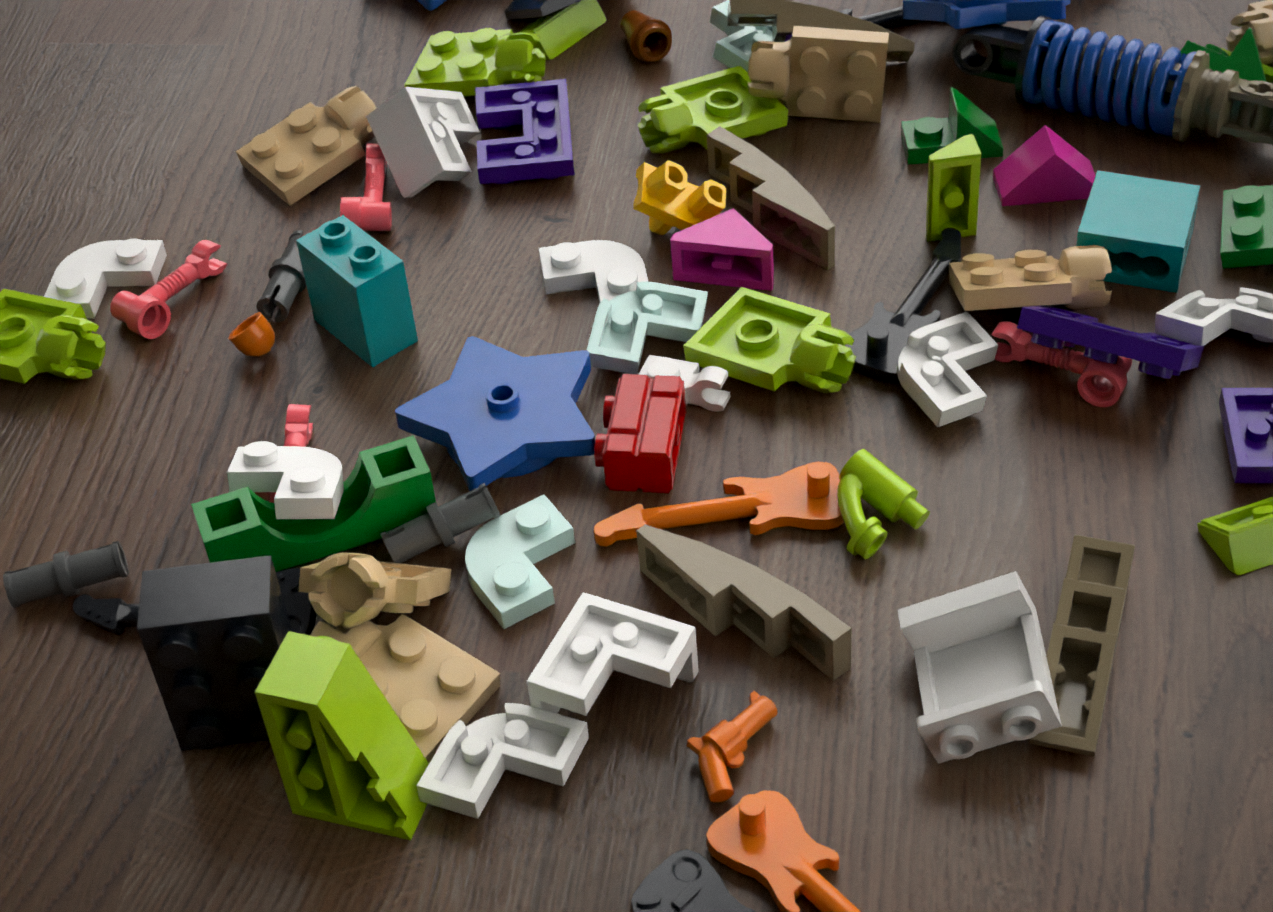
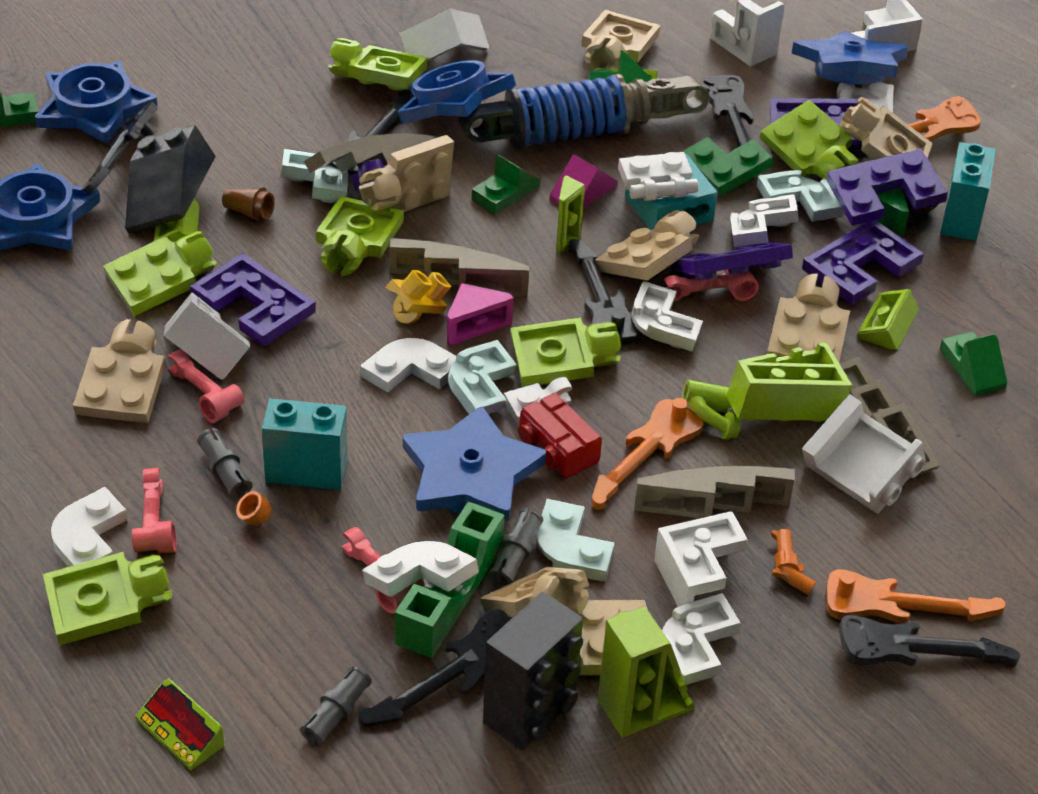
camera: 50 degrees left, 0 degrees up
(975, 522) = (790, 386): none -> lime wedge
(1117, 192) = (657, 176): none -> white plate
(1129, 475) = (809, 319): none -> tan plate

